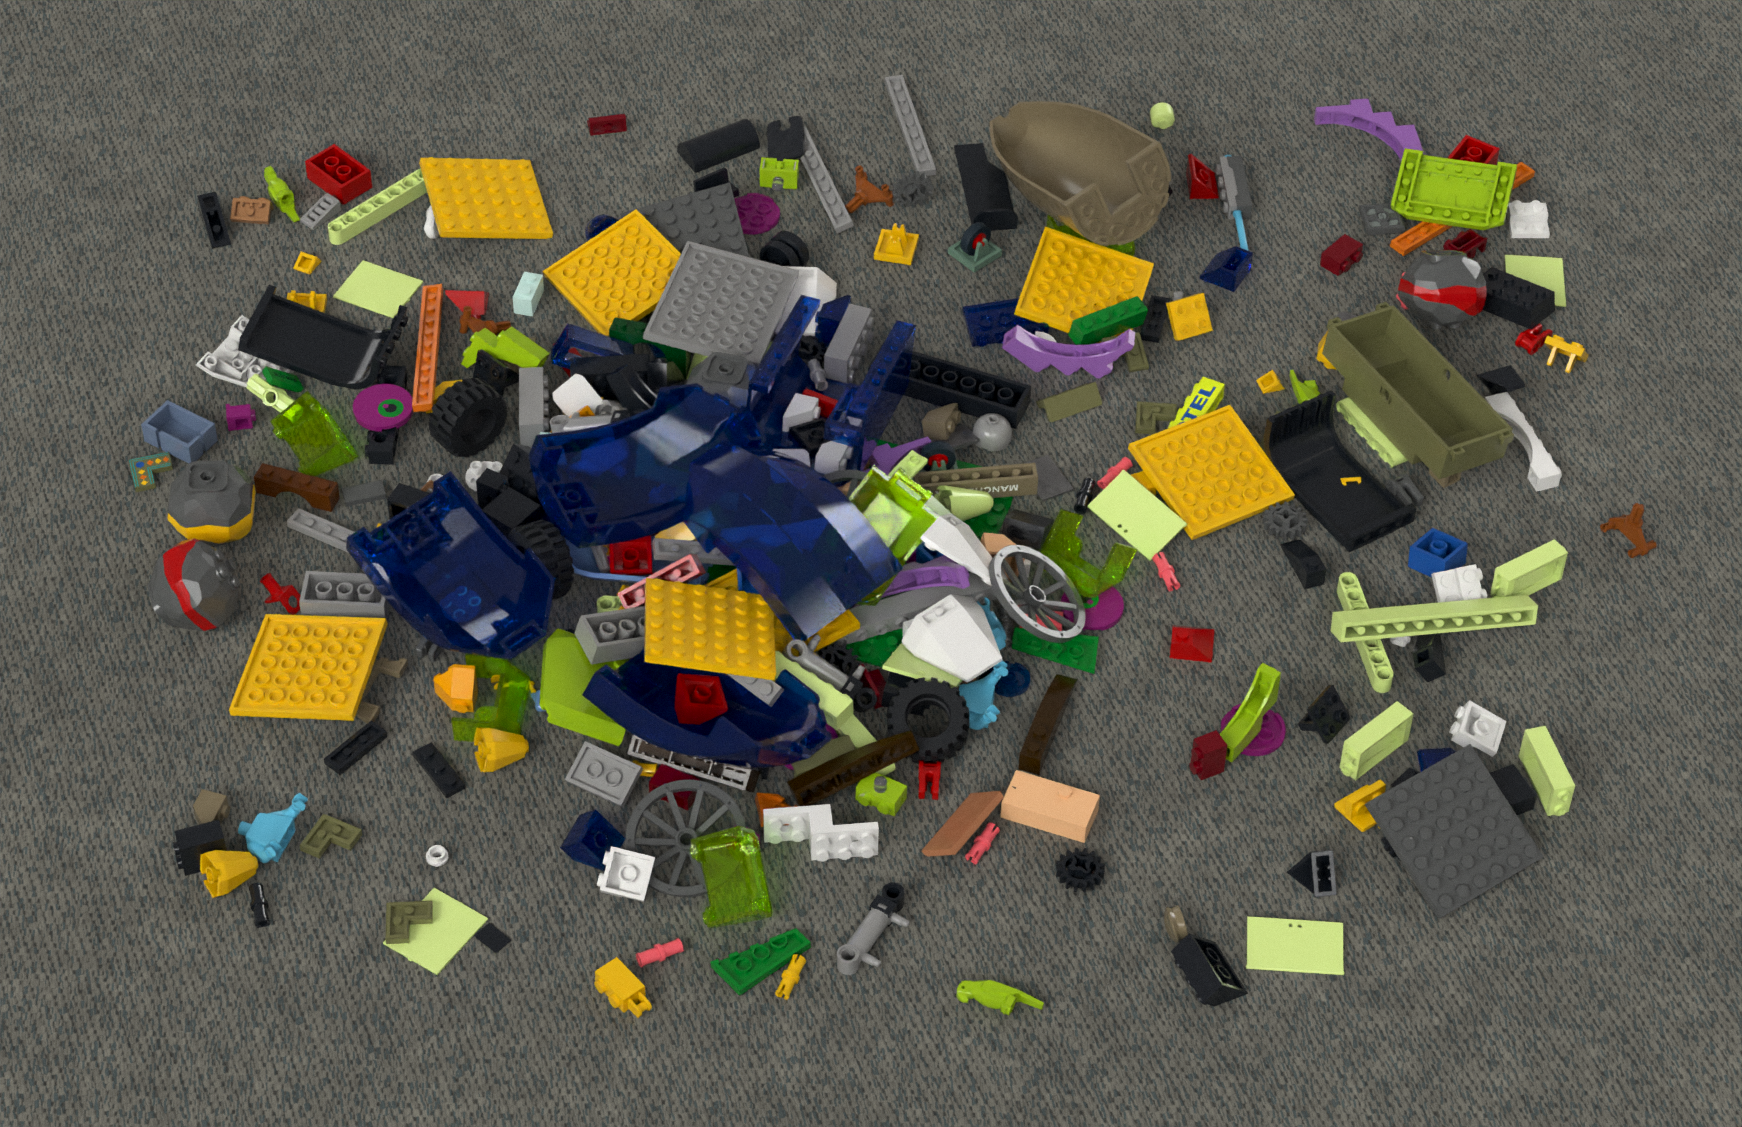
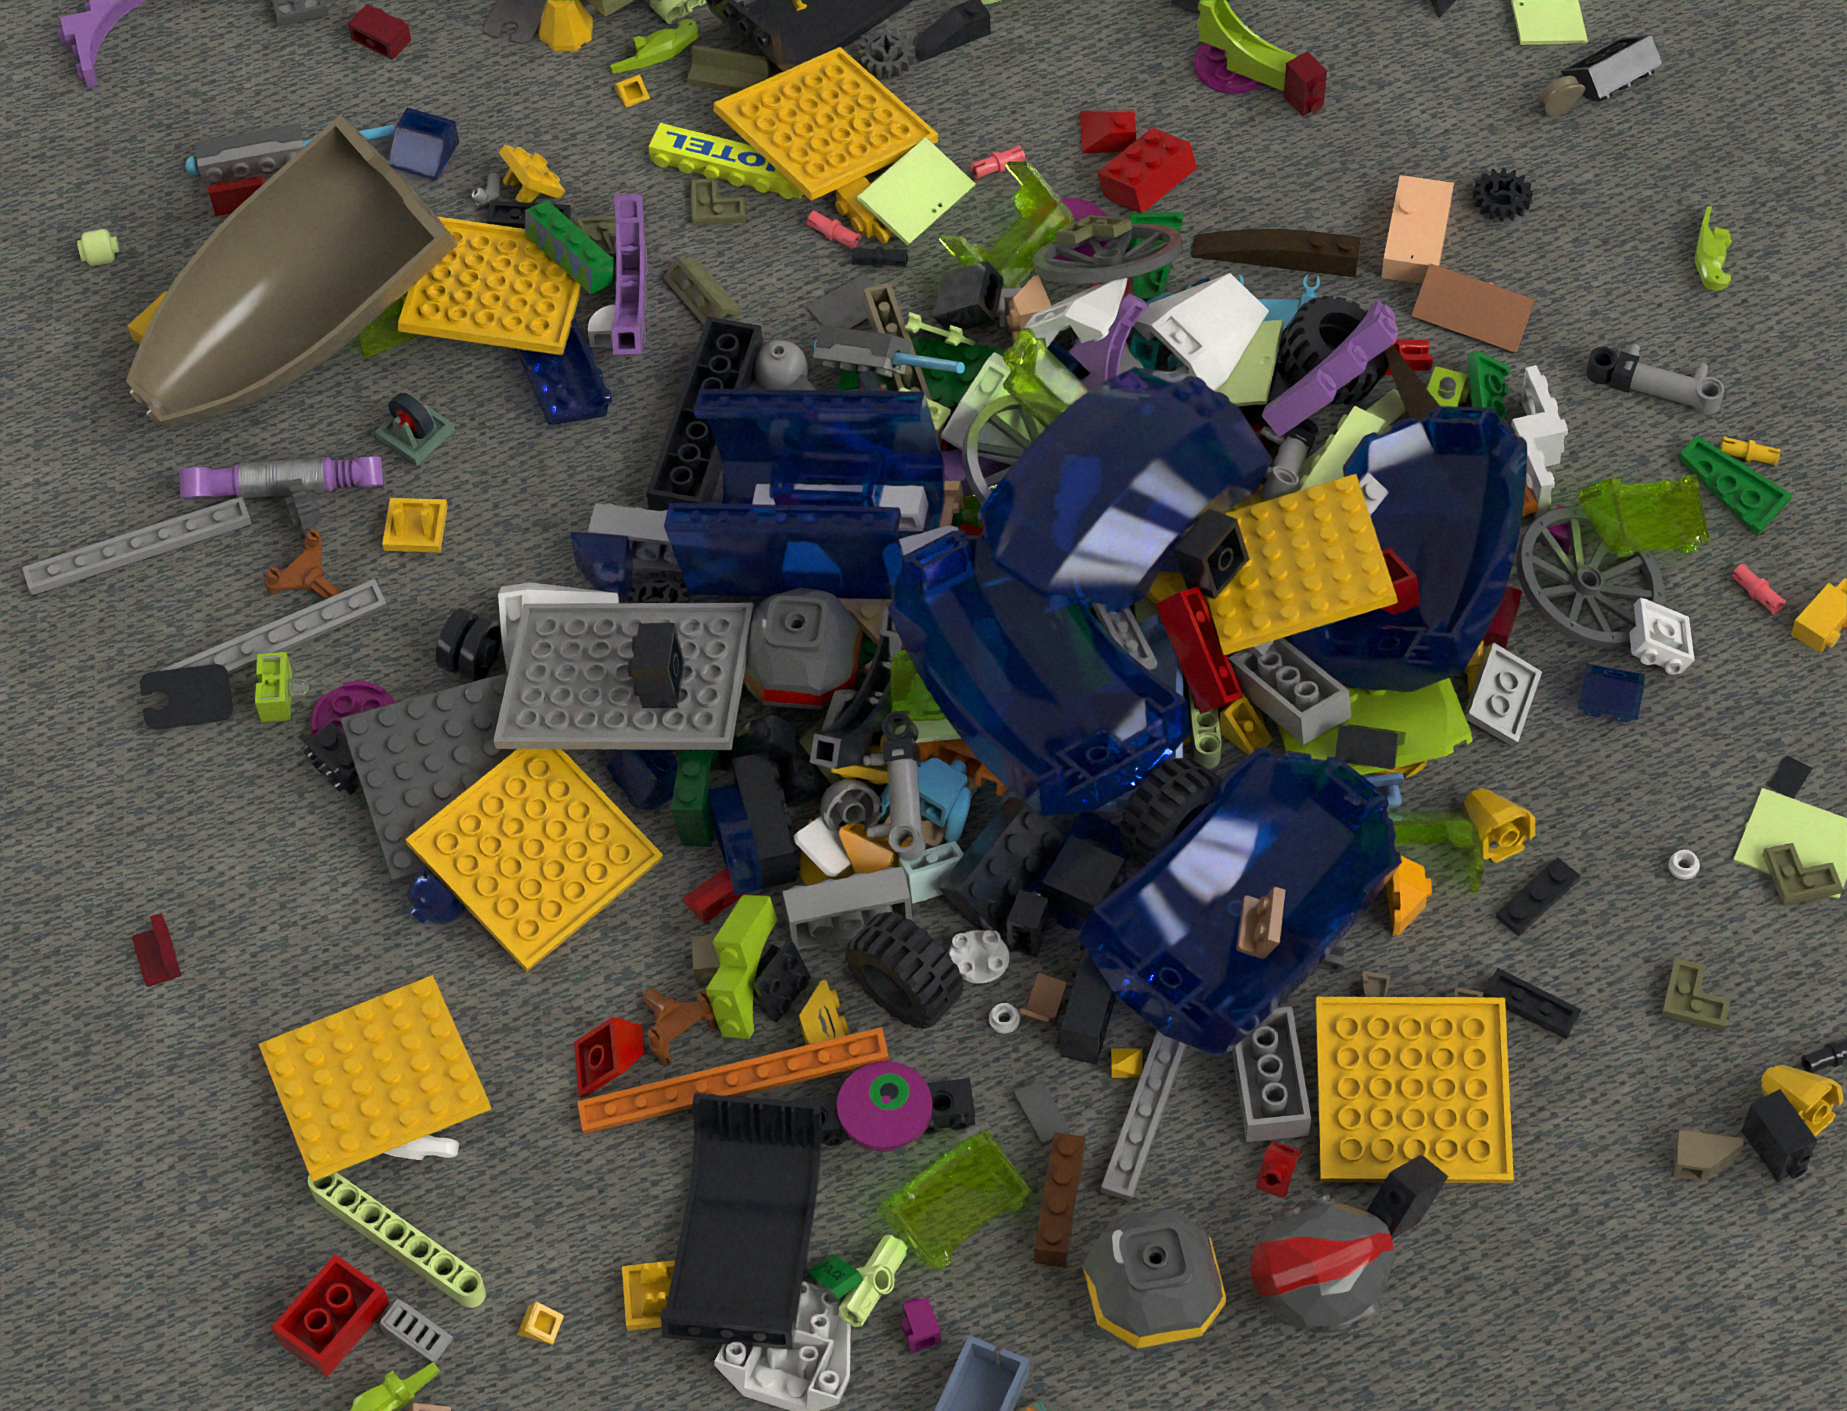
camera: 95 degrees left, 10 degrees up
(226, 637) = (1407, 1194): none -> black piece
(272, 831) = (1718, 1067): medium azure torso -> none
(378, 289) = (586, 1203): yellowish green piece -> none
(447, 596) = (1261, 923): none -> medium nougat bracket
(528, 293) = (584, 974): light aqua brick -> none
(559, 658) = (1368, 745): none -> black panel
(706, 299) = (657, 665): none -> black brick
(717, 573) = (1211, 553): none -> black brick
(719, 145) = (201, 785): black brick -> none
(890, 815) = (1487, 382): none -> green wing
(902, 708) = (1344, 364): none -> medium lavender arch
(946, 180) = (267, 480): none -> piece
(964, 502) = (943, 385): yellowish green cone -> none
(969, 457) = (872, 352): none -> piece
(985, 189) = (275, 436): black piece -> none
(995, 507) = (954, 337): none -> yellowish green flag
(1079, 604) = (1092, 226): none -> olive tile
(1135, 648) = (1147, 170): none -> red brick

